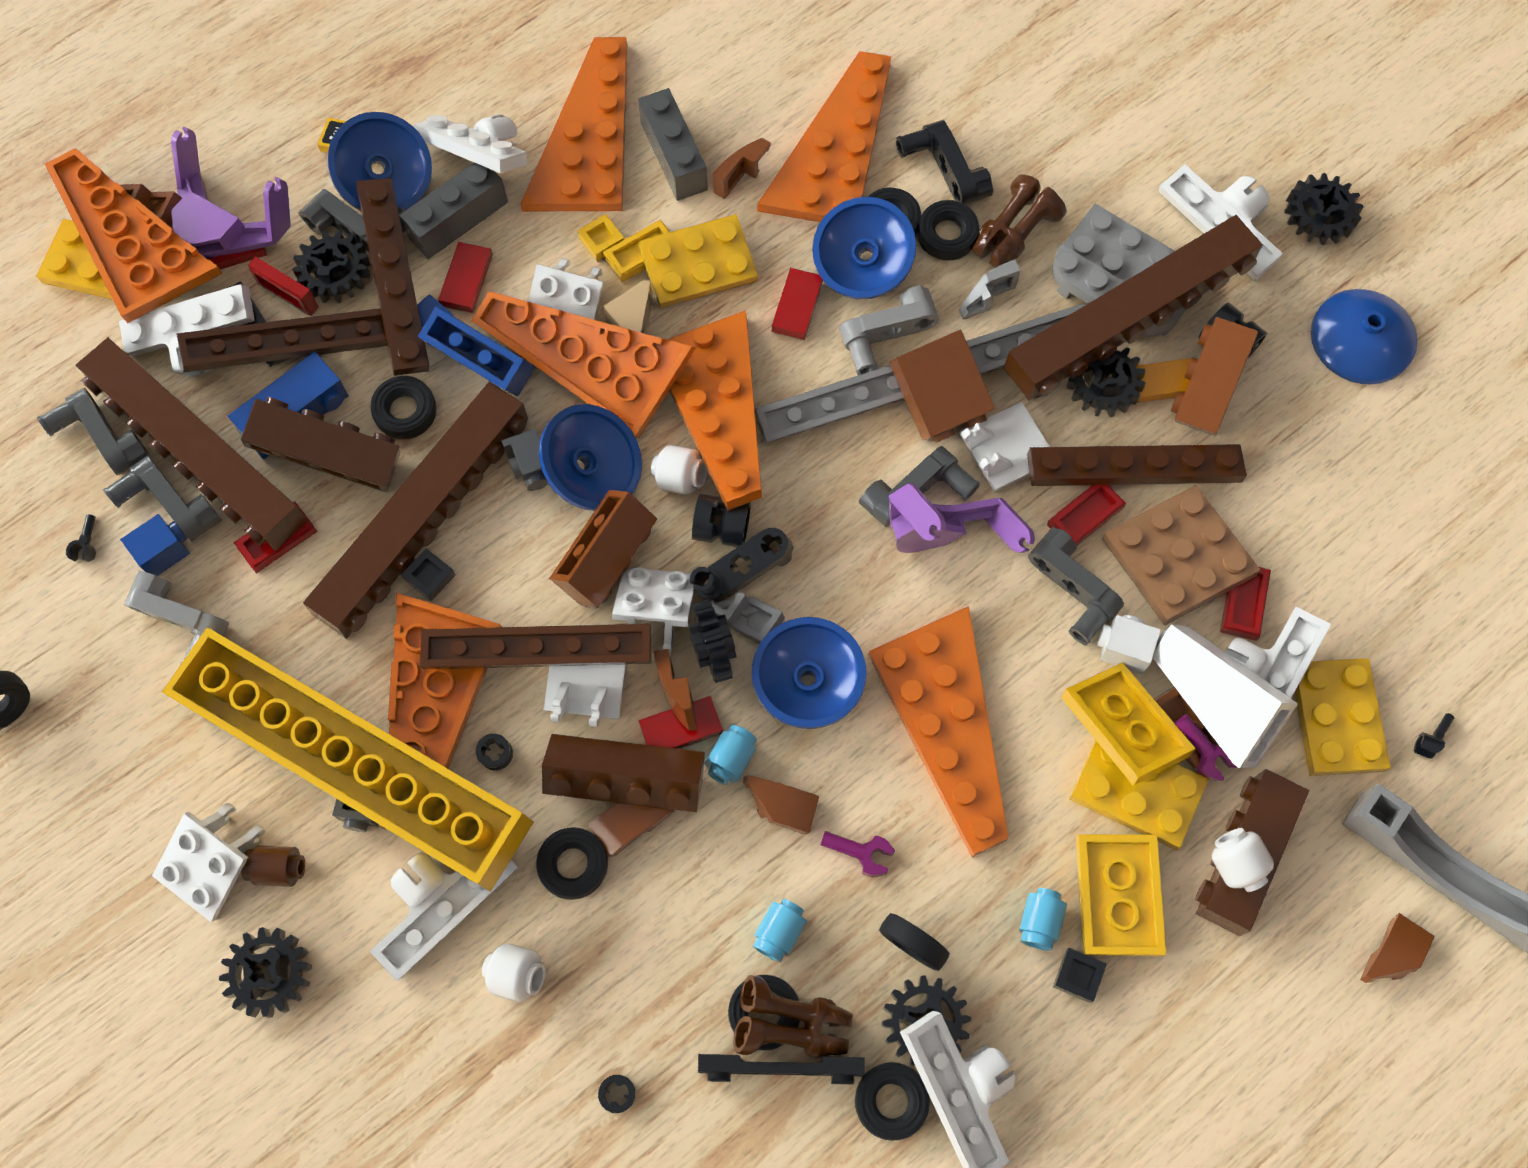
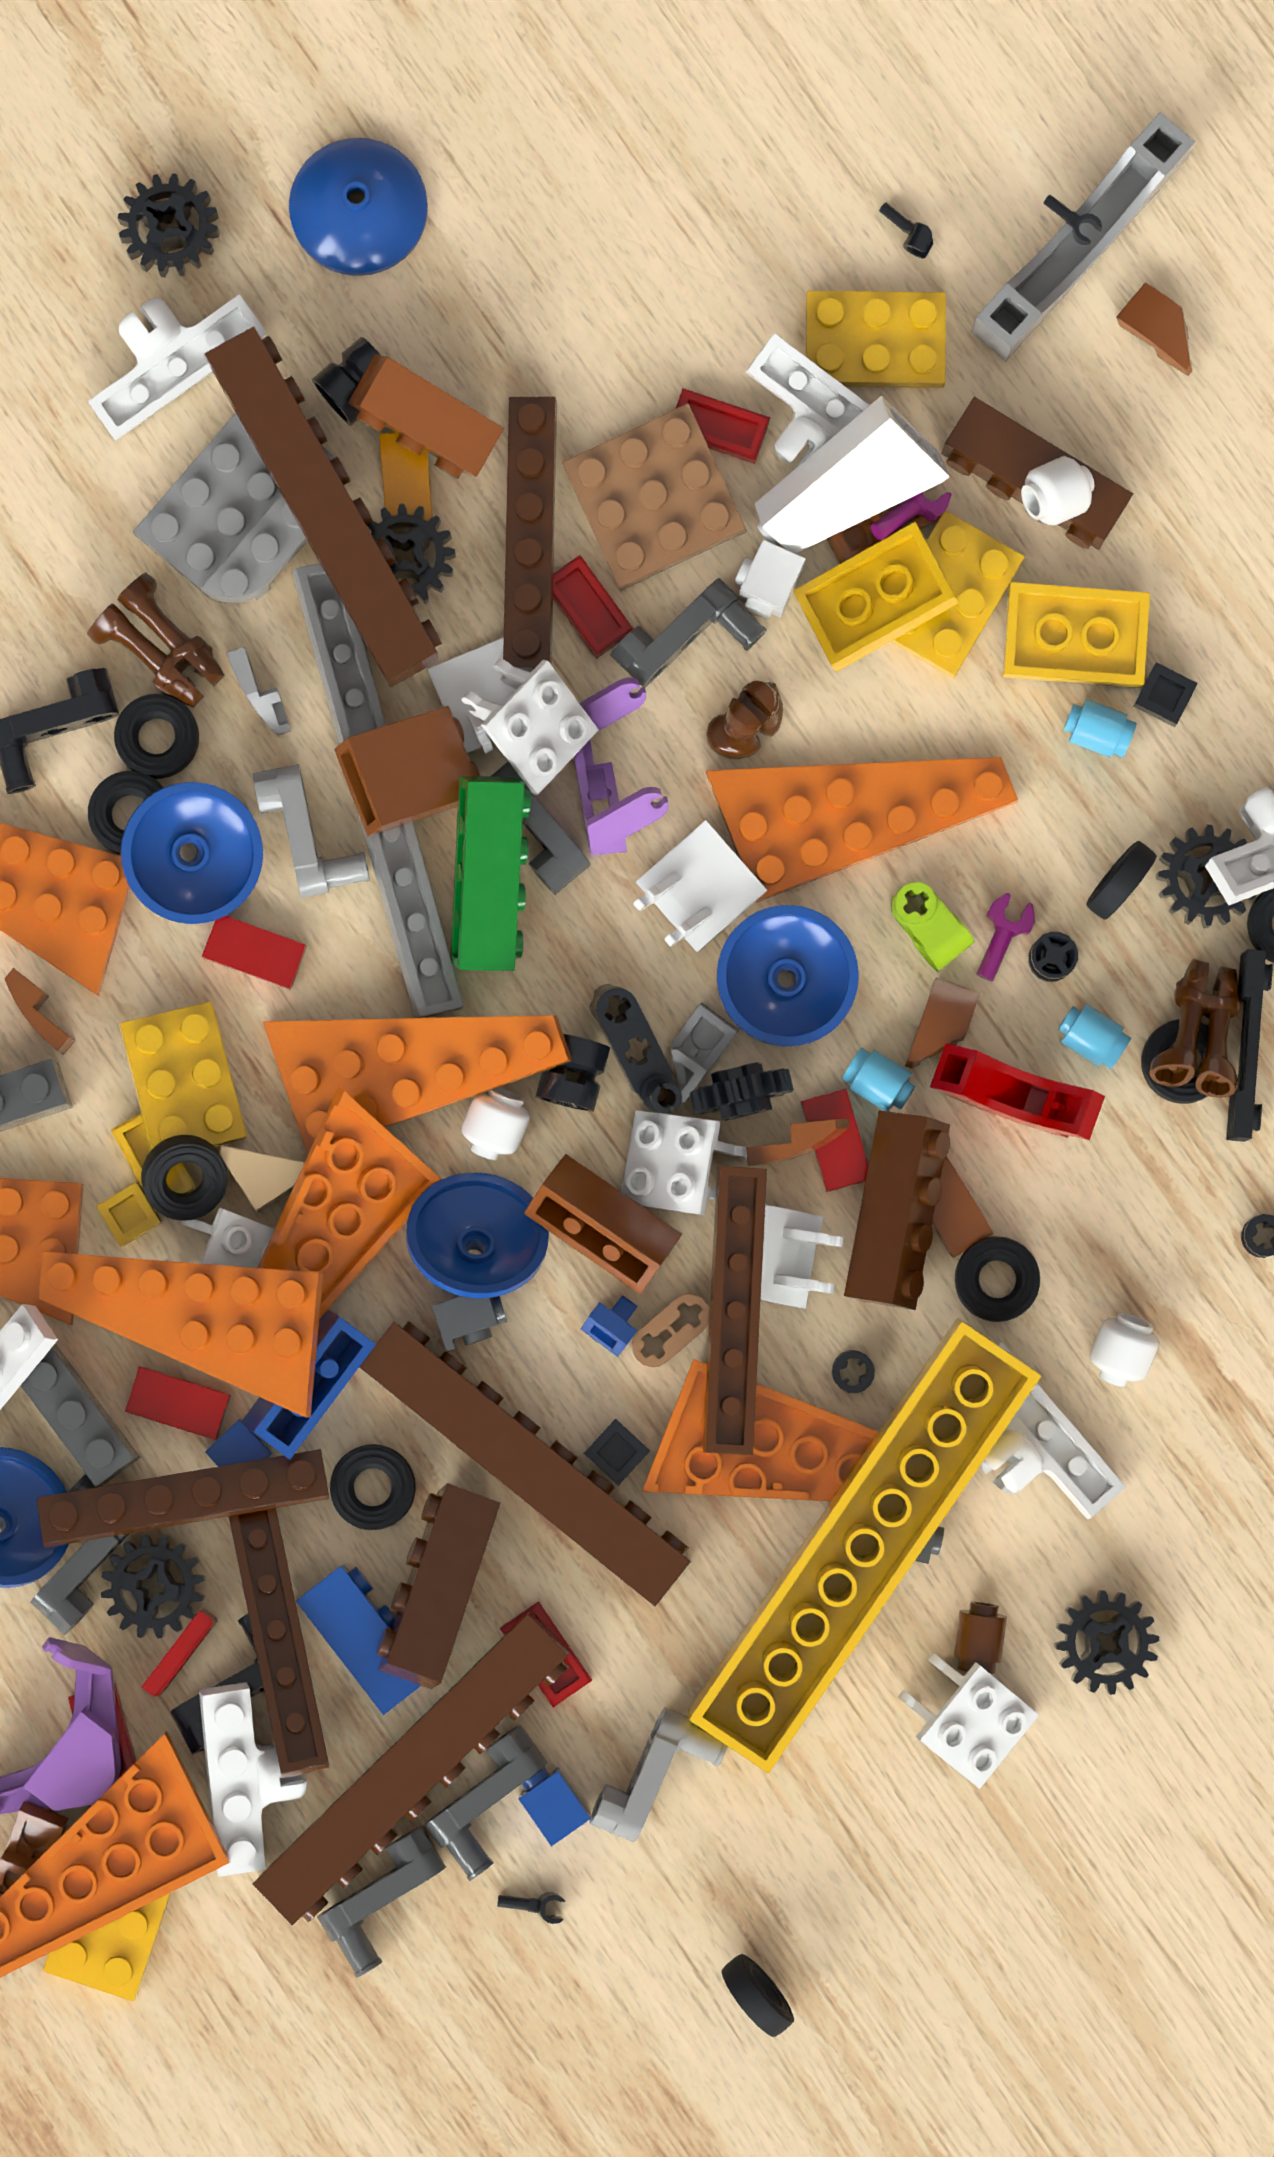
camera: 90 degrees left, 15 degrees up
(520, 279) = (224, 1320): none -> orange wing
(527, 564) = (611, 1326): none -> blue tile
(527, 599) = (678, 1339): none -> medium nougat beam
(609, 250) = (184, 1205): none -> black tyre
(725, 863) = (1016, 1093): none -> red arch
(846, 881) = (1059, 951): none -> black wheel
(857, 792) = (936, 933): none -> lime piece
(869, 443) = (489, 873): none -> green brick
(875, 606) = (700, 887): none -> white plate
(987, 464) = (537, 725): none -> white plate
(1017, 617) = (755, 710): none -> reddish brown piece
(1477, 866) = (1073, 219): none -> black hand

